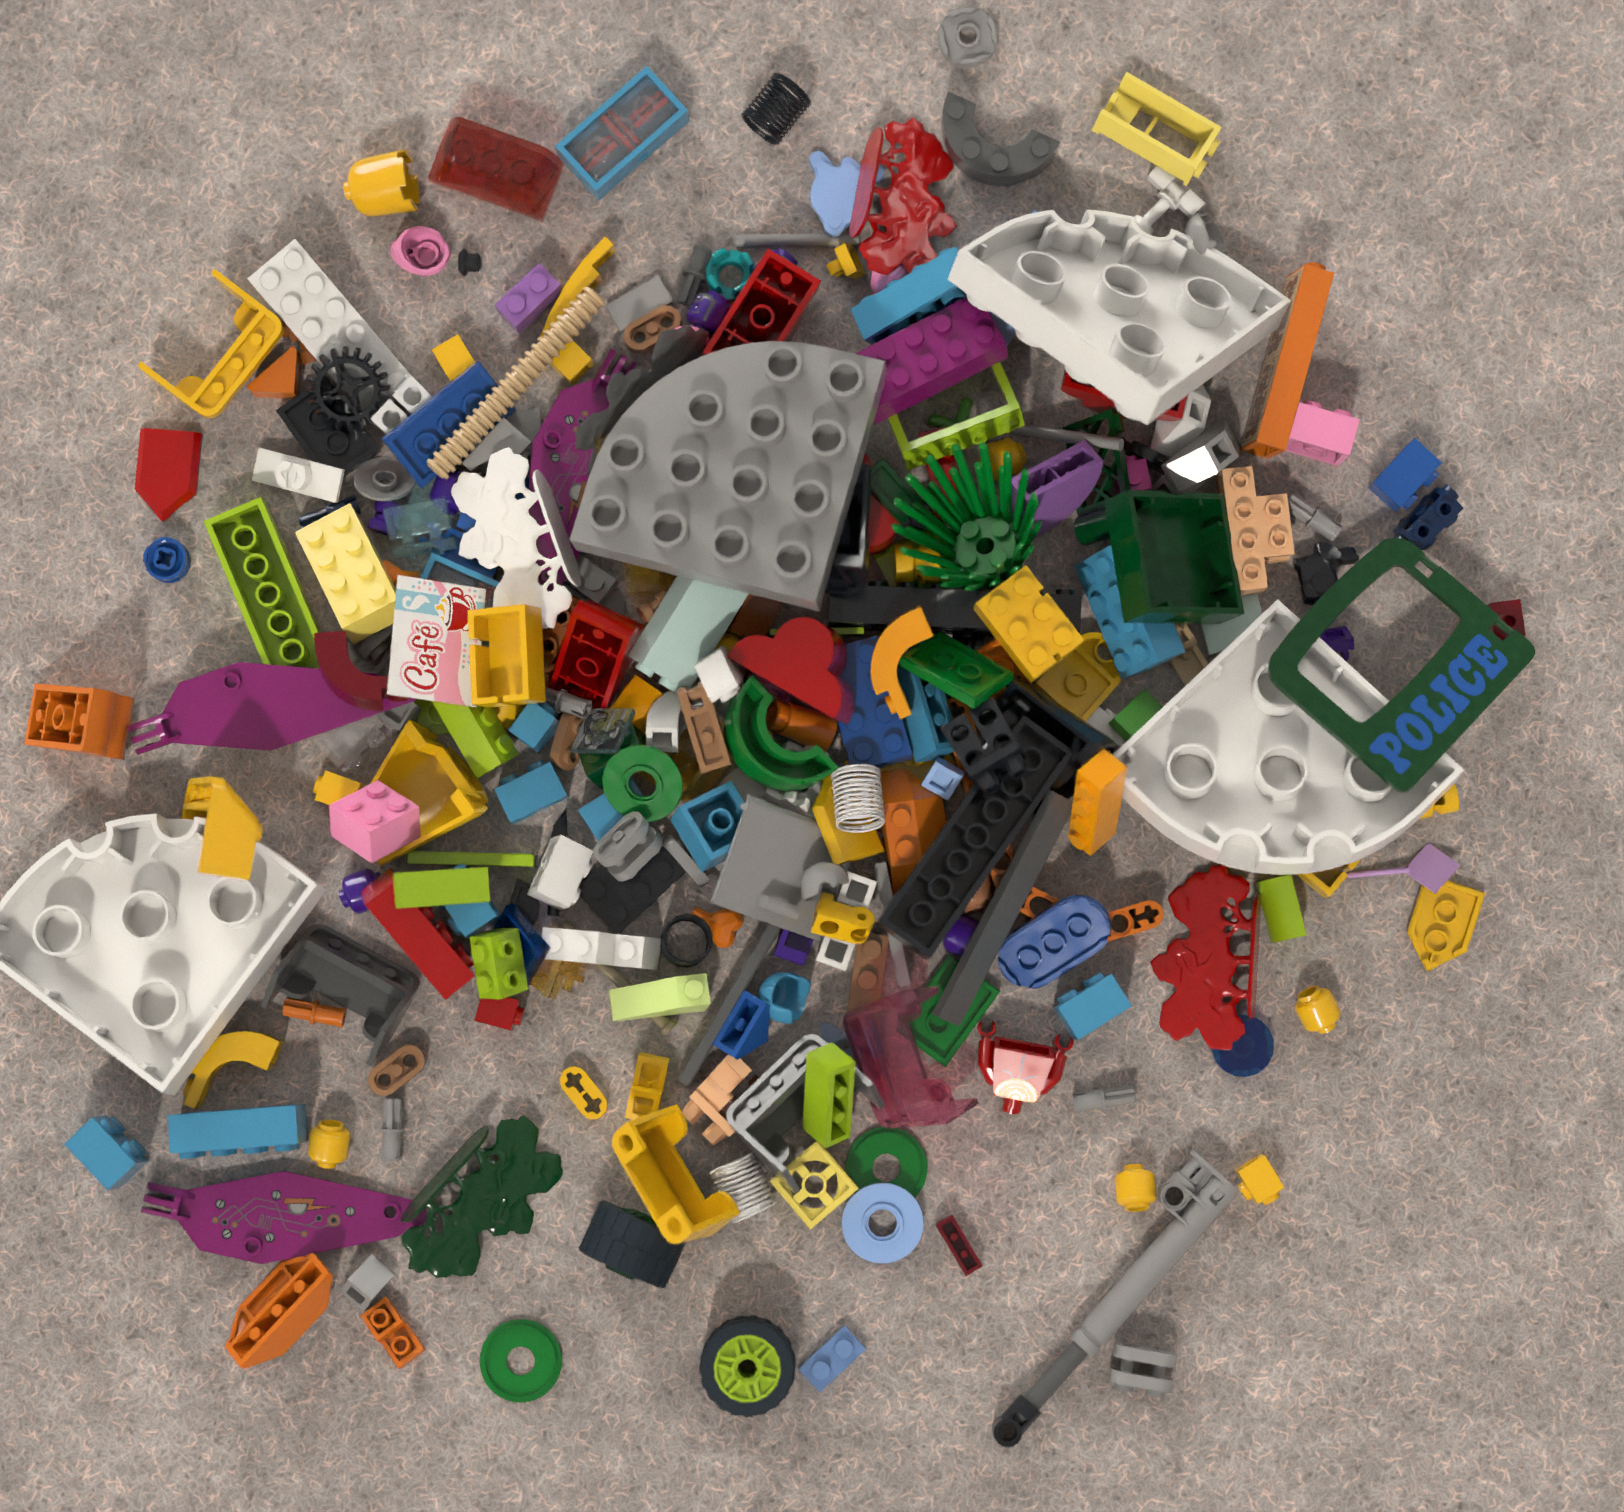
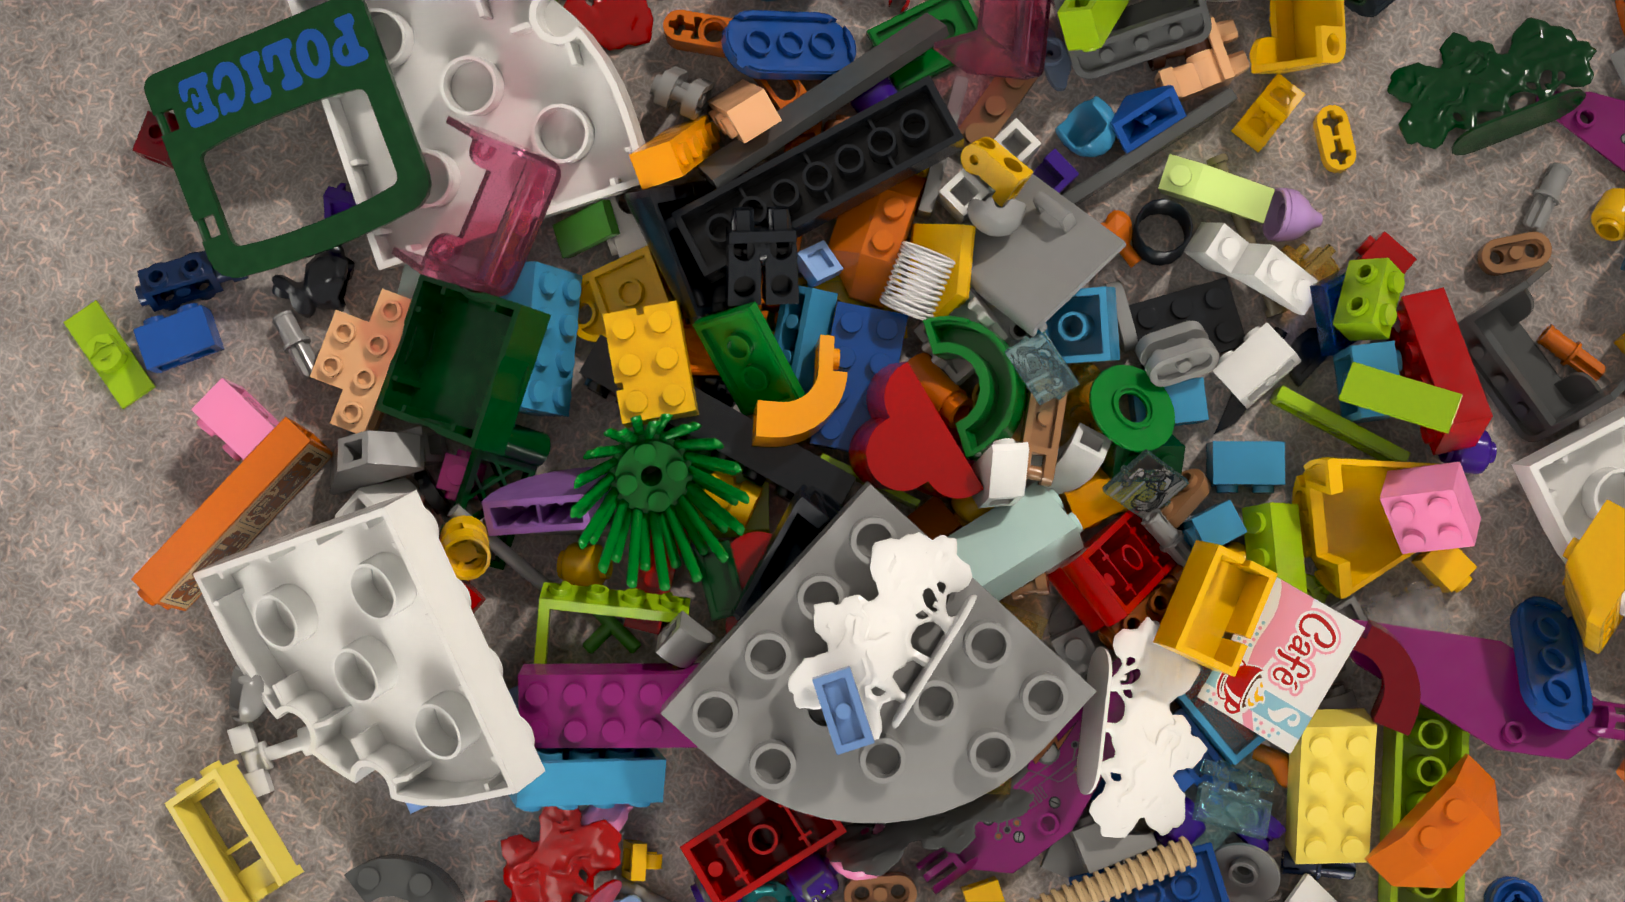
camera: 155 degrees left, 0 degrees up
(224, 747) = (1550, 663): none -> blue tile
(251, 580) = (1442, 832): none -> orange wedge
(589, 1008) = (1289, 216): none -> lavender helmet
(728, 772) = (1042, 368): none -> clear light blue piece
(751, 424) = (843, 710): none -> medium blue plate
(755, 489) = (877, 633): none -> white plant
(896, 430) = (683, 641): none -> light grey brick
(1062, 864) = (743, 111): none -> light nougat brick
(1096, 418) = (466, 546): none -> yellow wheel
(1131, 861) = (673, 88): none -> light grey brick
(1201, 672) = (500, 220): none -> clear pink windscreen
(1453, 439) = (109, 354): none -> lime piece

